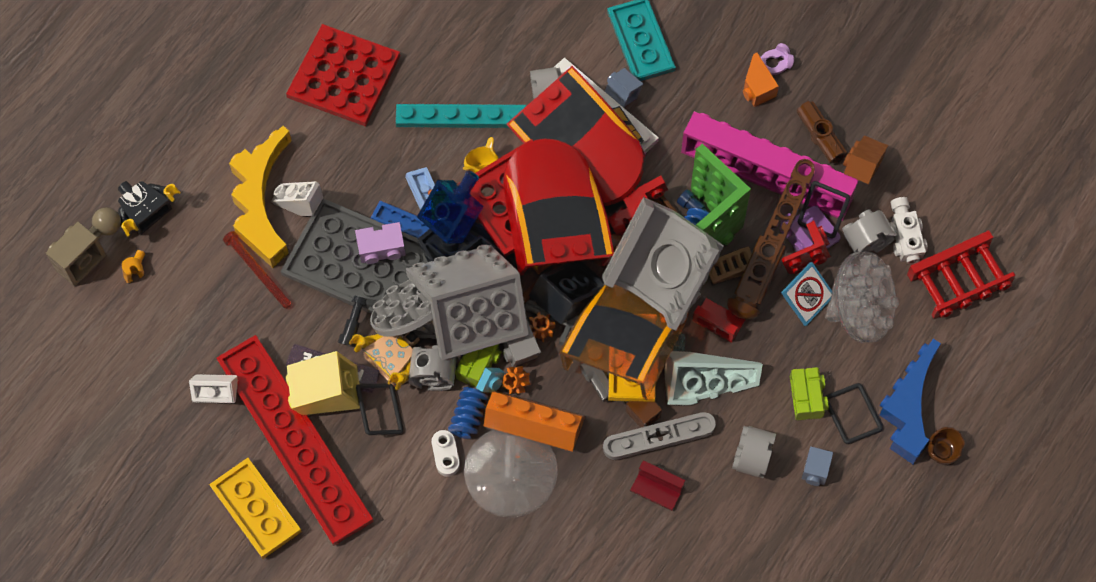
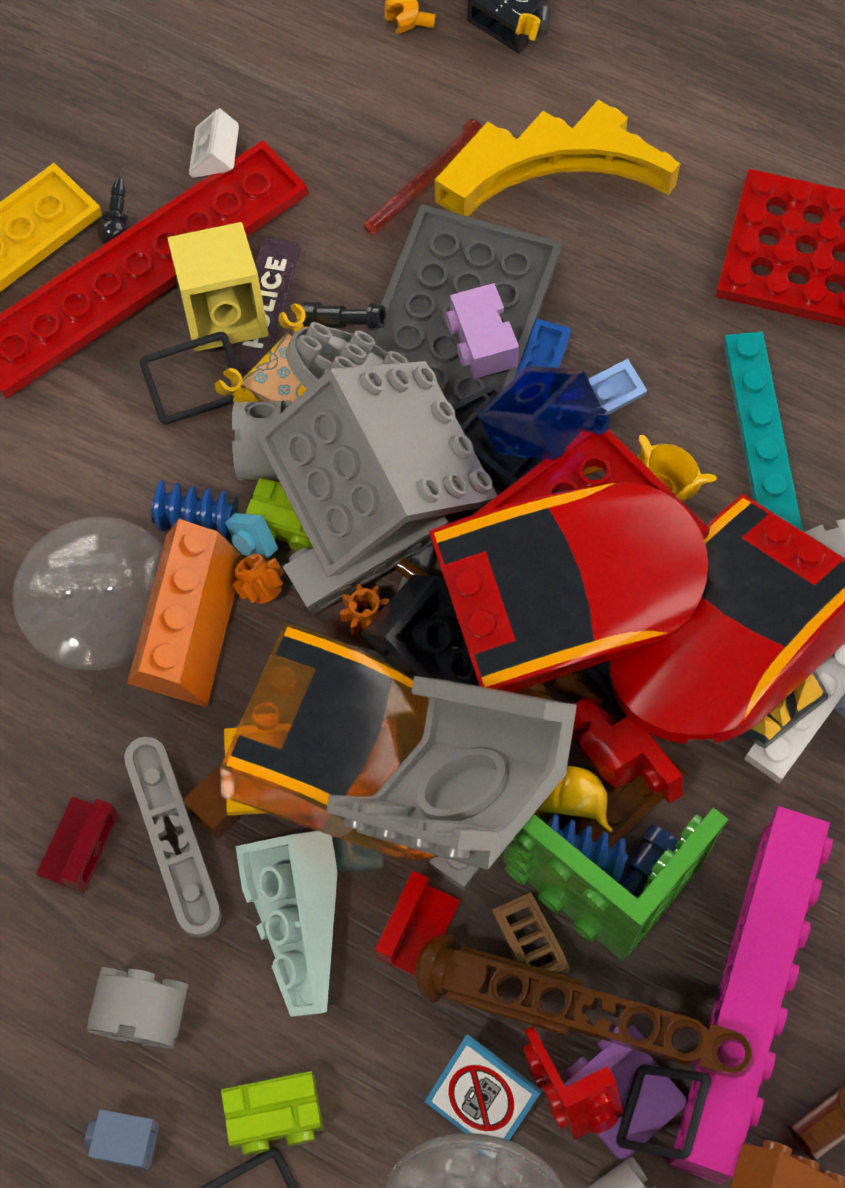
camera: 85 degrees right, 0 degrees up
(261, 454) = (114, 219): none -> black bar
(298, 198) = (553, 209): white slope -> none
(445, 452) = (126, 492): white plate -> none

